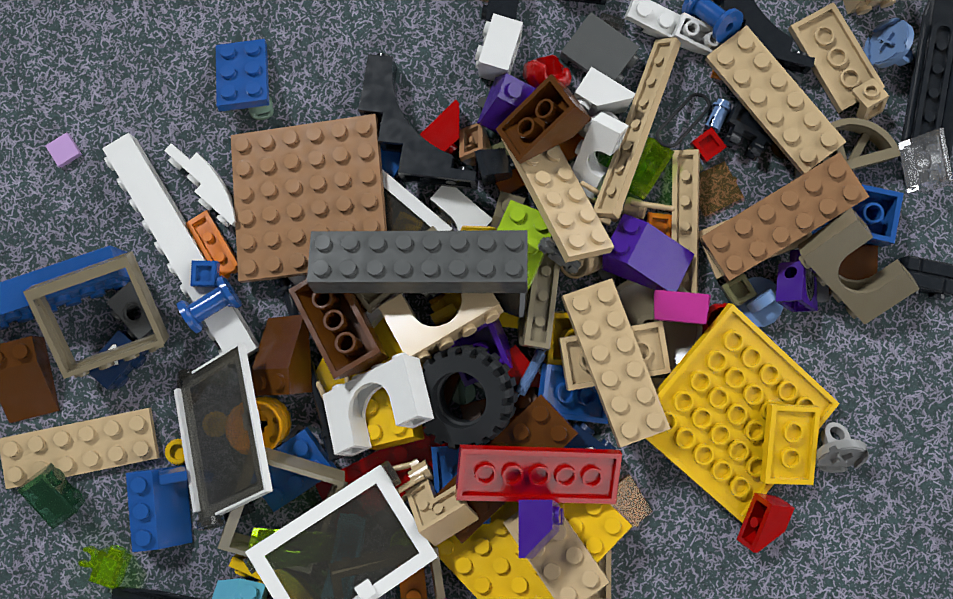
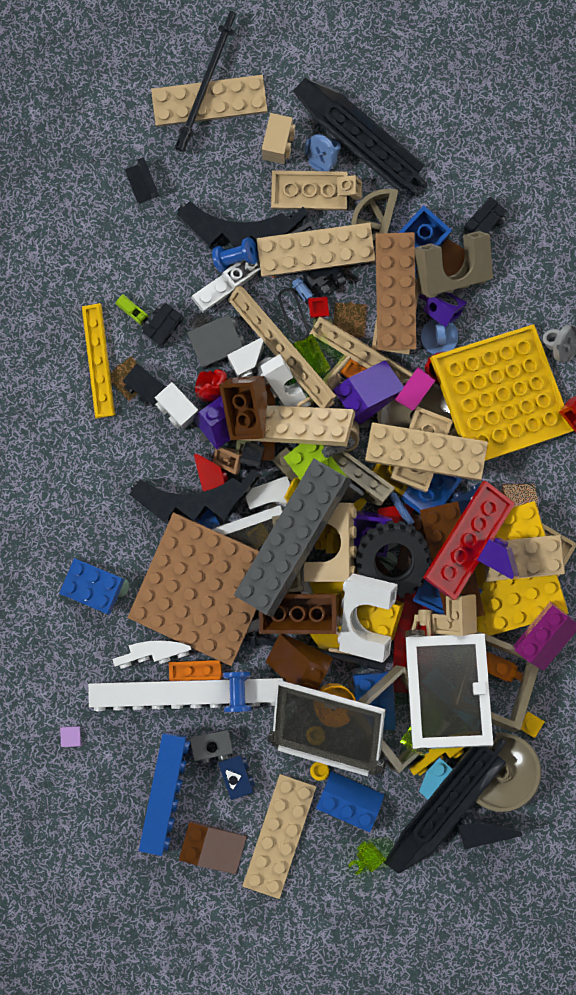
camera: 60 degrees left, 0 degrees up
(52, 495) = (302, 867): clear green brick -> none
(54, 337) = (174, 761): dark tan window -> none
(173, 475) = (335, 777): blue tile -> none
(204, 273) = (214, 684): blue tile -> none
(739, 290) = (425, 344): olive tile -> none
(790, 444) = (541, 371): yellow plate -> none
(926, 162) = (412, 180): clear slope -> none

